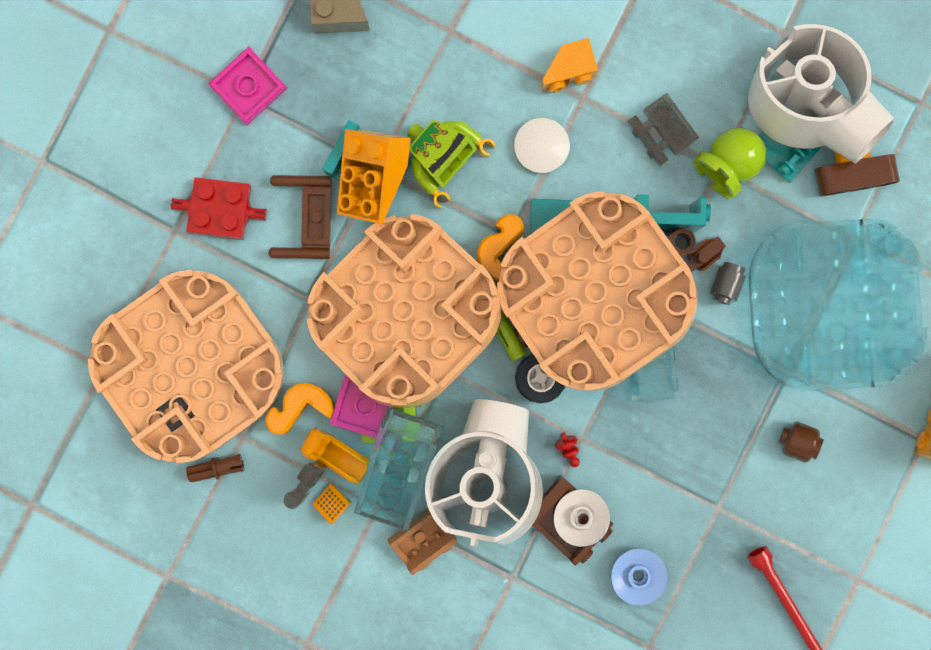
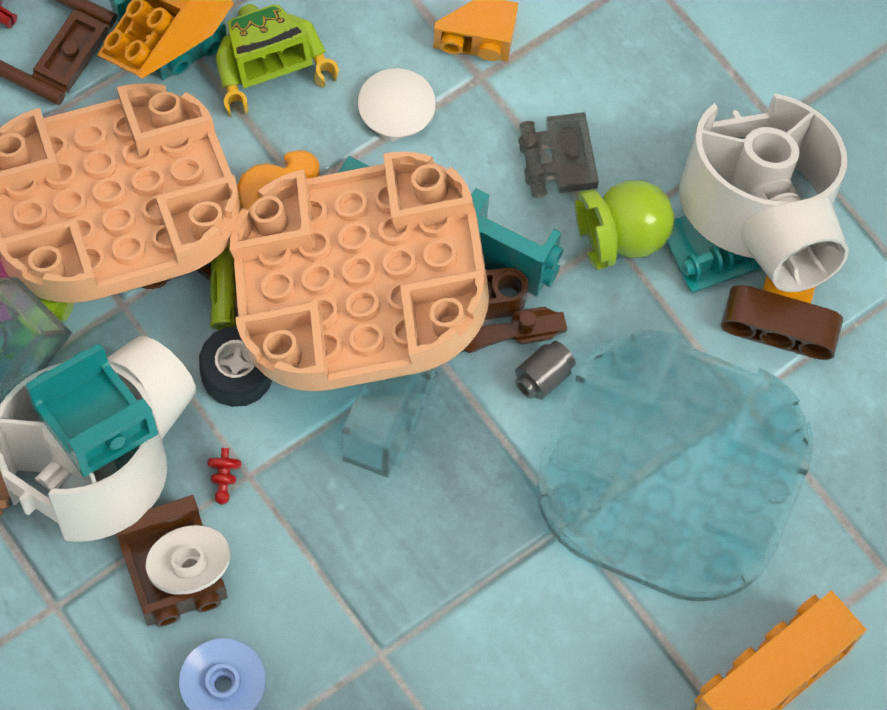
camera: 25 degrees right, 20 degrees down
(488, 475) = (91, 410): none -> teal panel
(801, 442) = (537, 615): reddish brown head -> none

